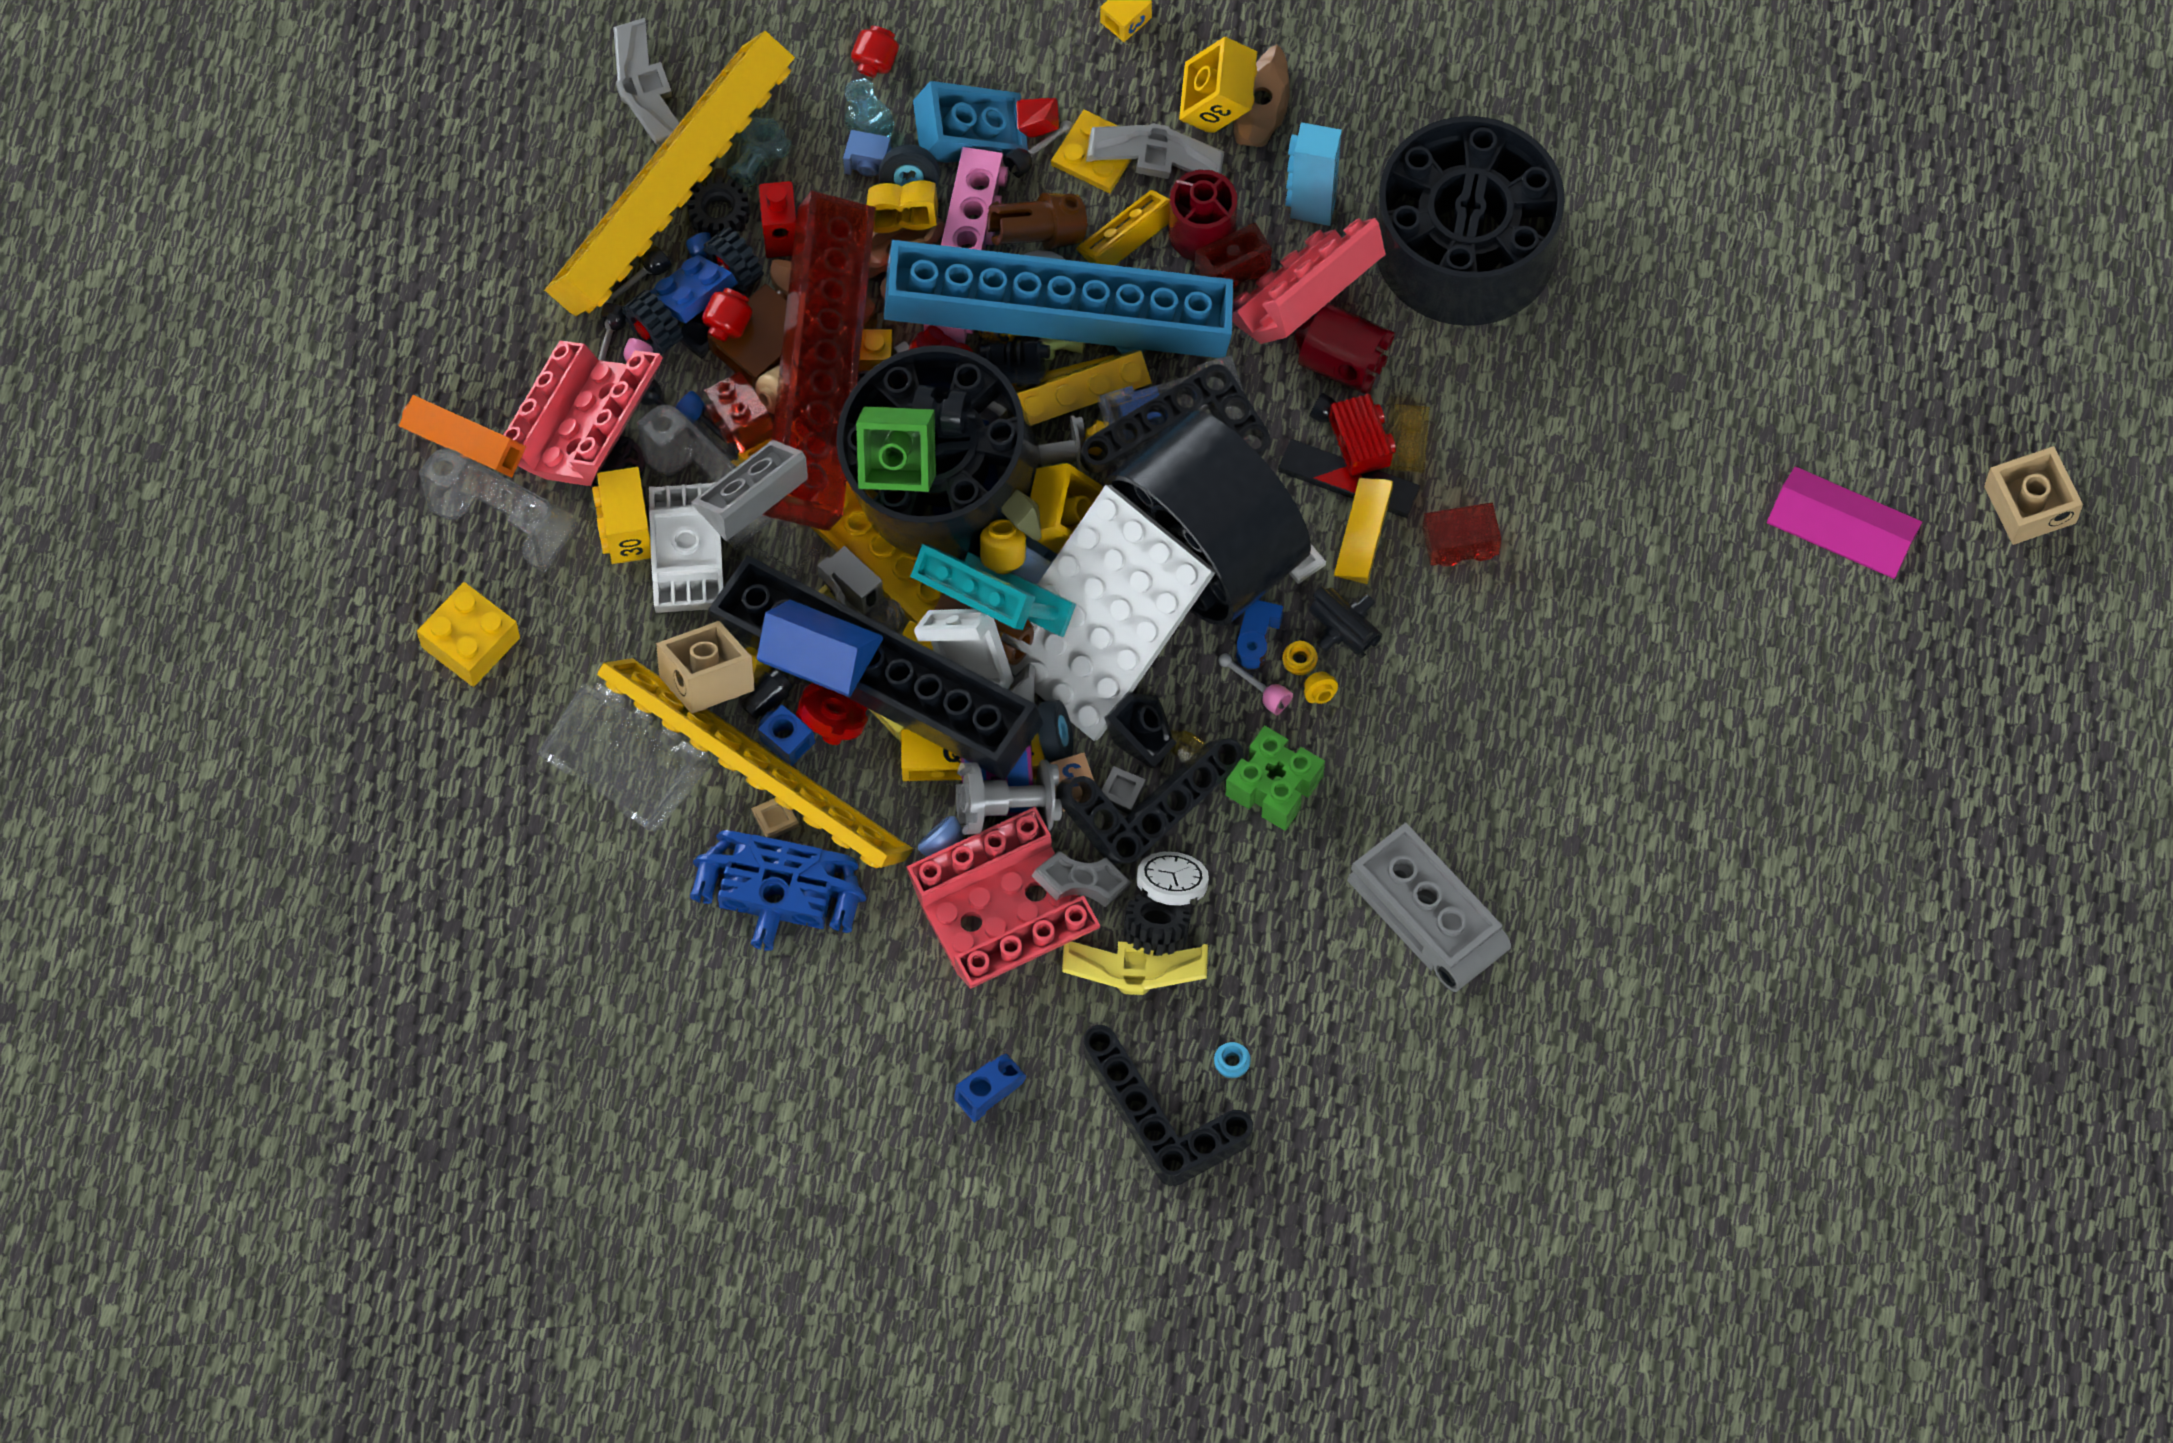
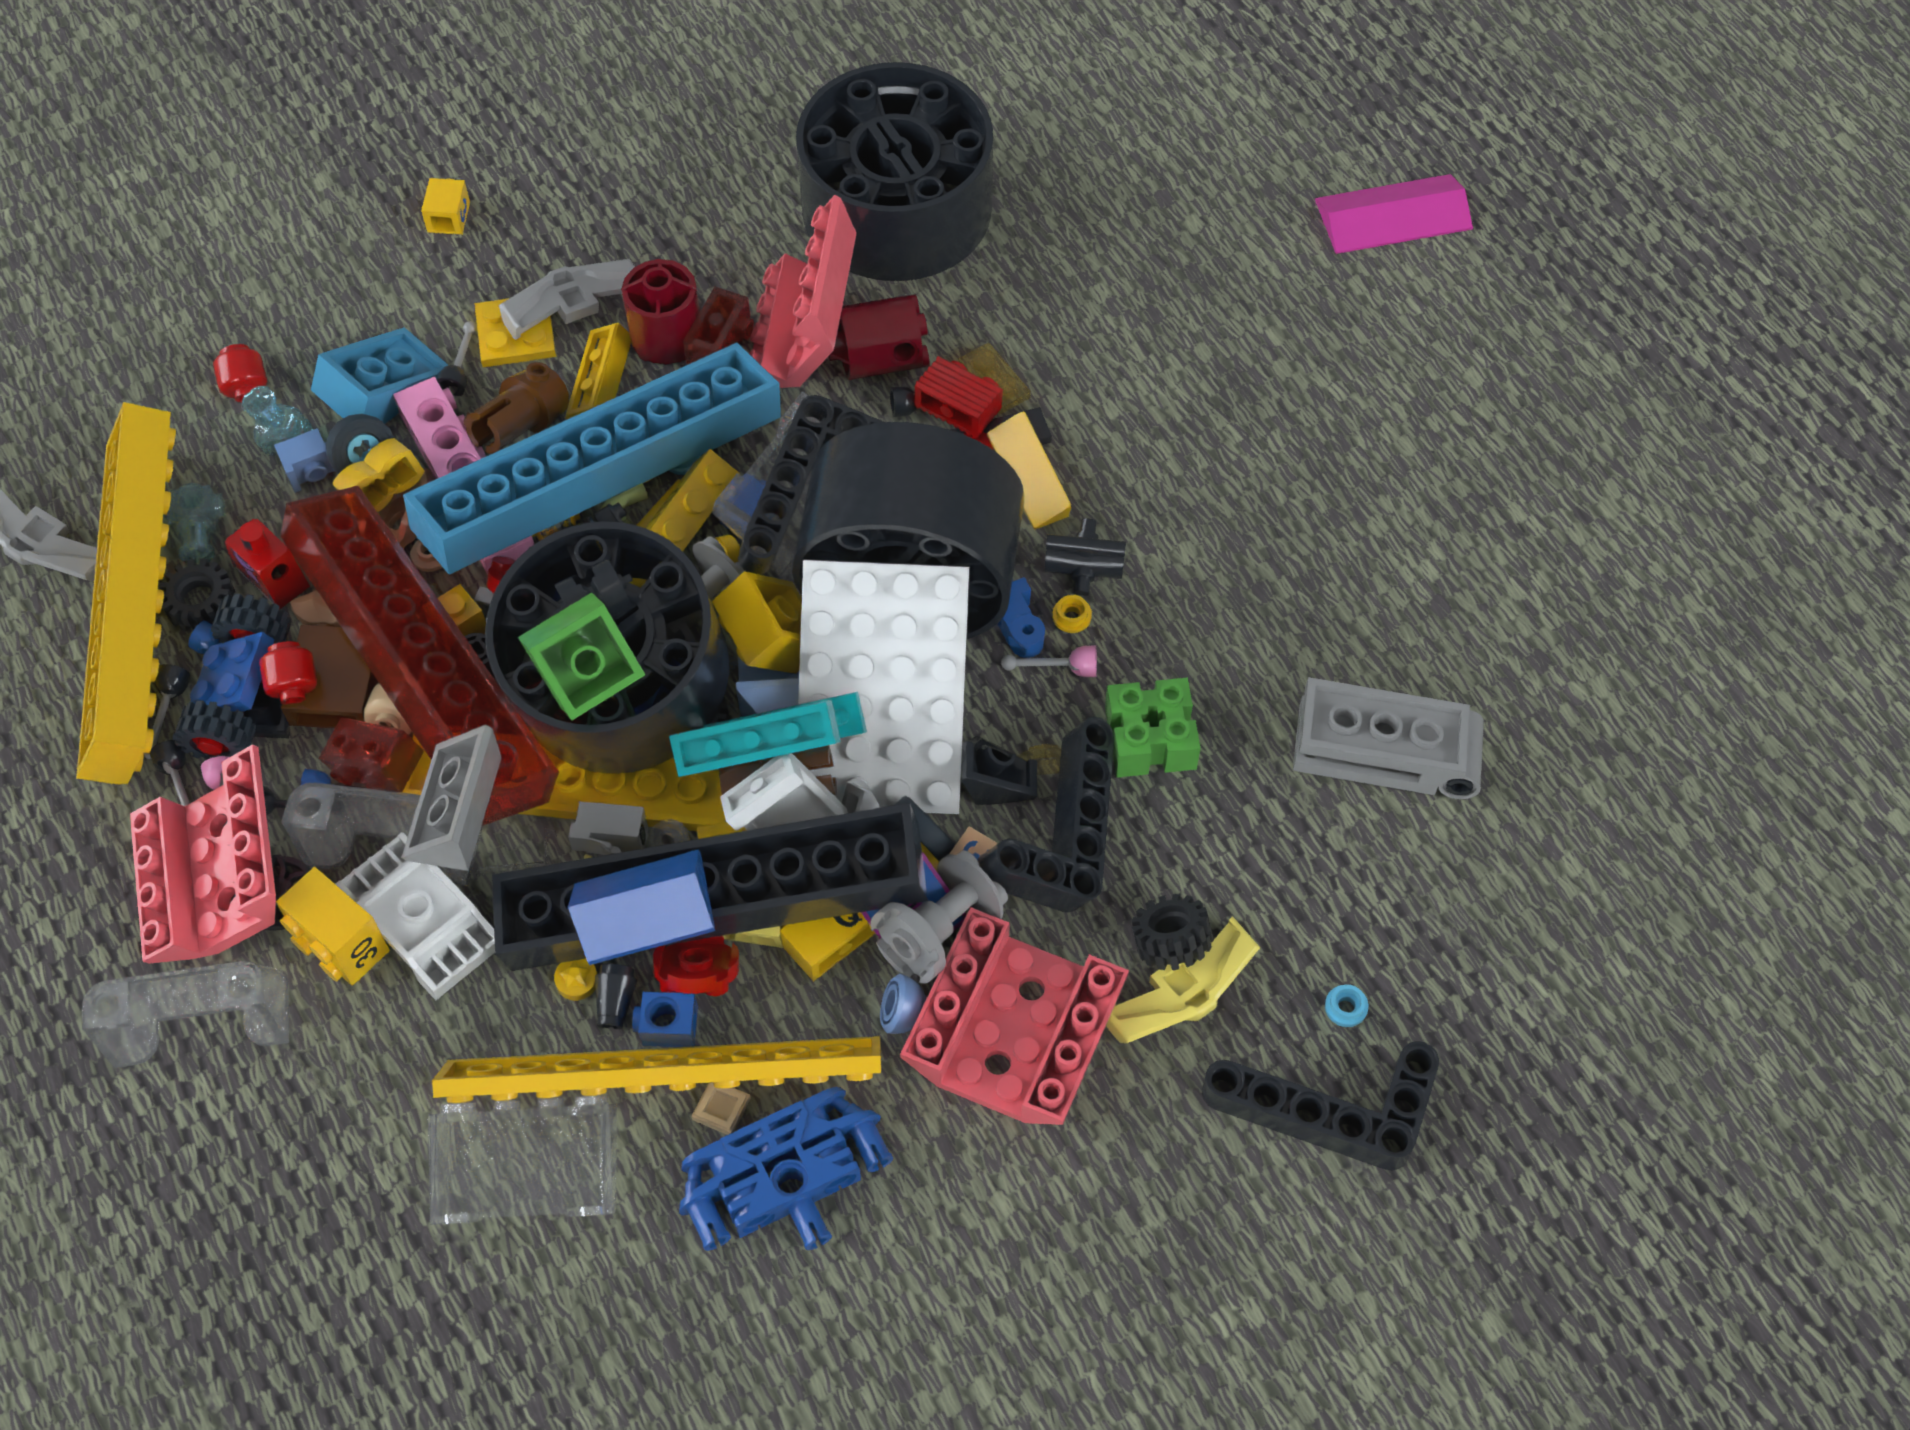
camera: 40 degrees left, 5 degrees down
(462, 435) = (76, 971): orange brick -> none
(468, 634) = (257, 1159): yellow brick -> none
(705, 667) = (536, 1011): tan brick -> none
(988, 1086) = (1157, 1208): blue leg -> none
(1002, 547) = (741, 689): yellow head -> none
(1023, 514) = (742, 643): olive slope -> none
(1037, 116) = (438, 333): red slope -> none
(1067, 877) = (1053, 951): light grey tile -> none
(1123, 789) = (1027, 829): light grey plate -> none
(1172, 878) = (1146, 880): white tile -> none
(1218, 85) = (582, 205): yellow brick -> none
(1259, 123) = (632, 222): medium nougat piece -> none
(1313, 173) = (736, 210): medium azure brick -> none
(1320, 687) = (1115, 625): yellow plate -> none
(1461, 534) = (1115, 419): clear red brick -> none
(2033, 495) = (1517, 95): tan brick -> none

